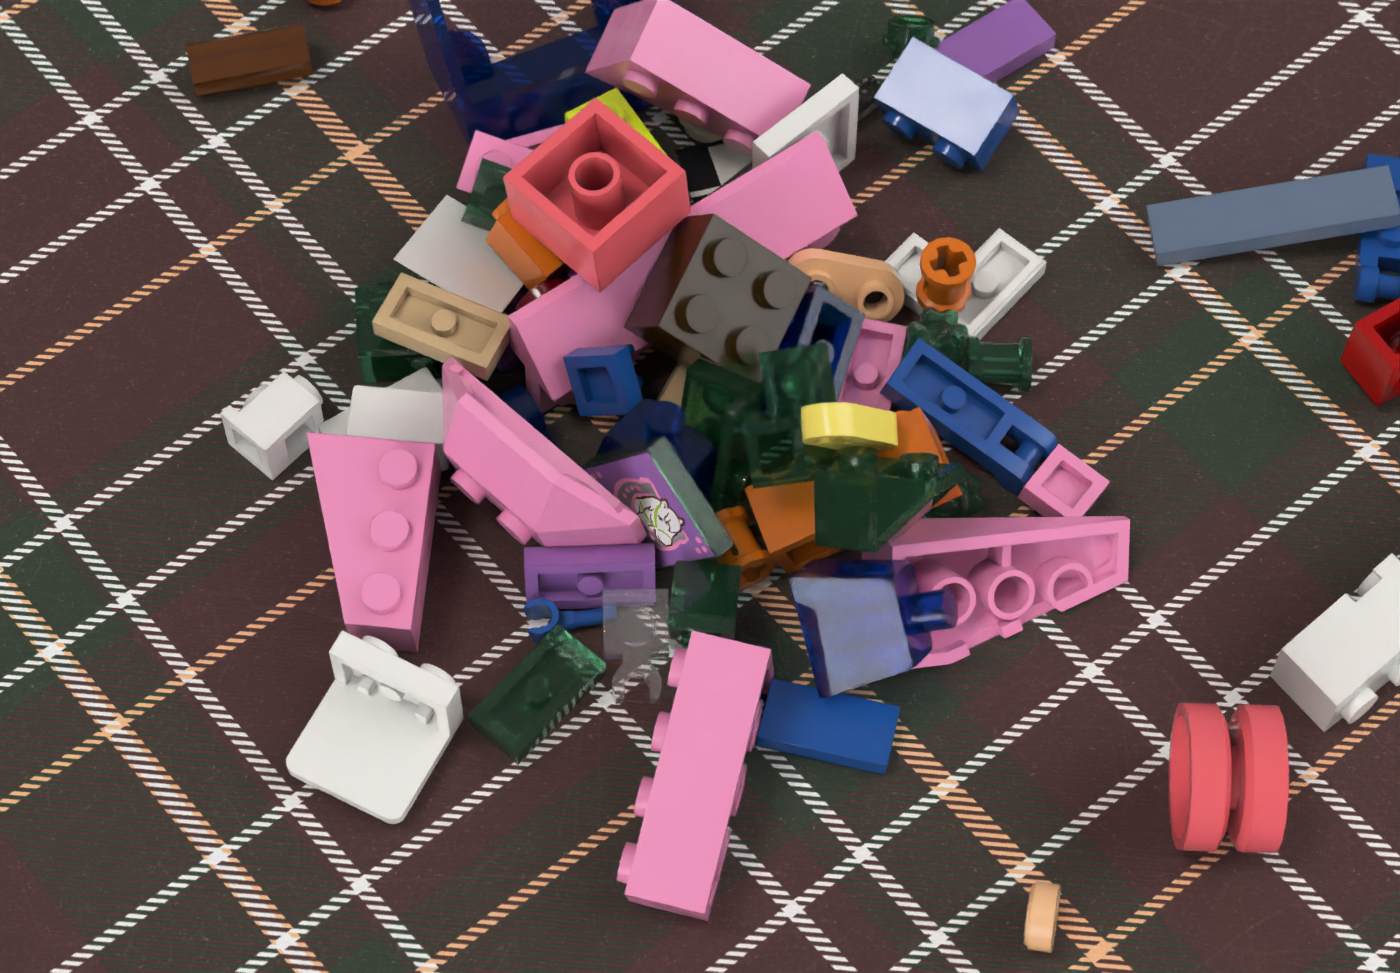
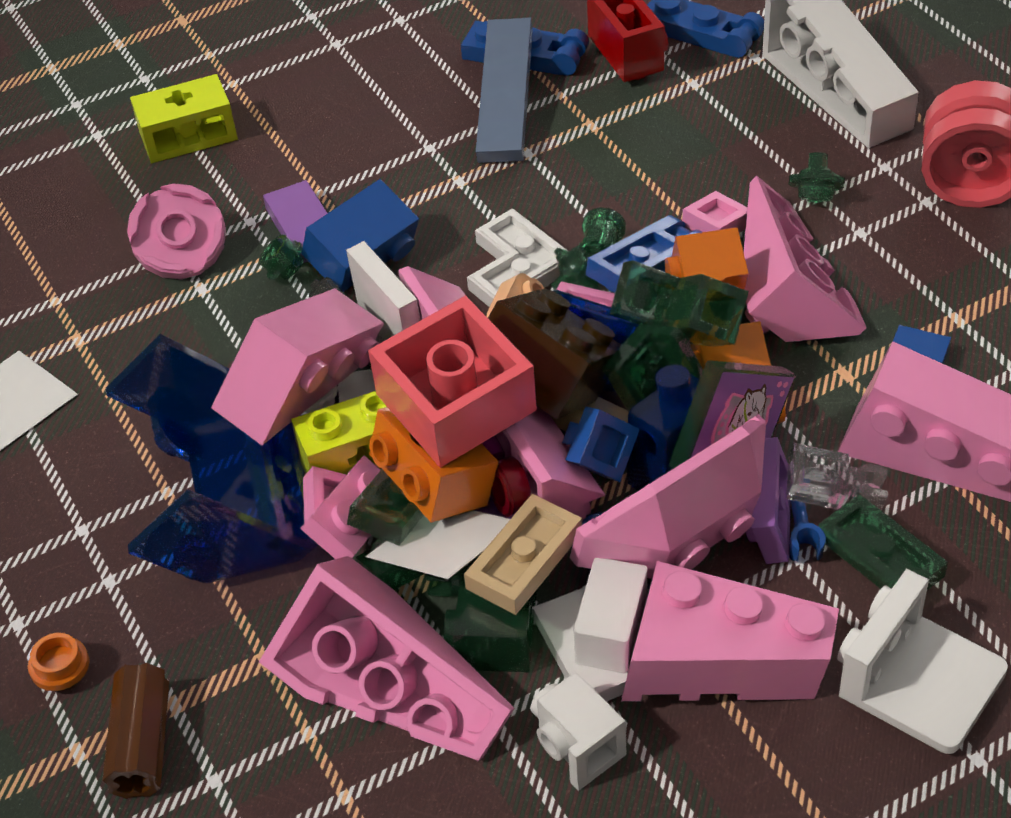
camera: 75 degrees left, 15 degrees down
(362, 216) = (375, 655): none -> bright pink wedge
(703, 601) = (829, 403): clear green slope -> none
(847, 425) = (708, 253): light yellow beam -> none
(866, 620) = (847, 306): clear blue torso -> none
(873, 499) = (765, 257): clear green slope -> none
(946, 275) = (534, 244): orange bush -> none
(1154, 600) = (816, 181): none -> clear green plant

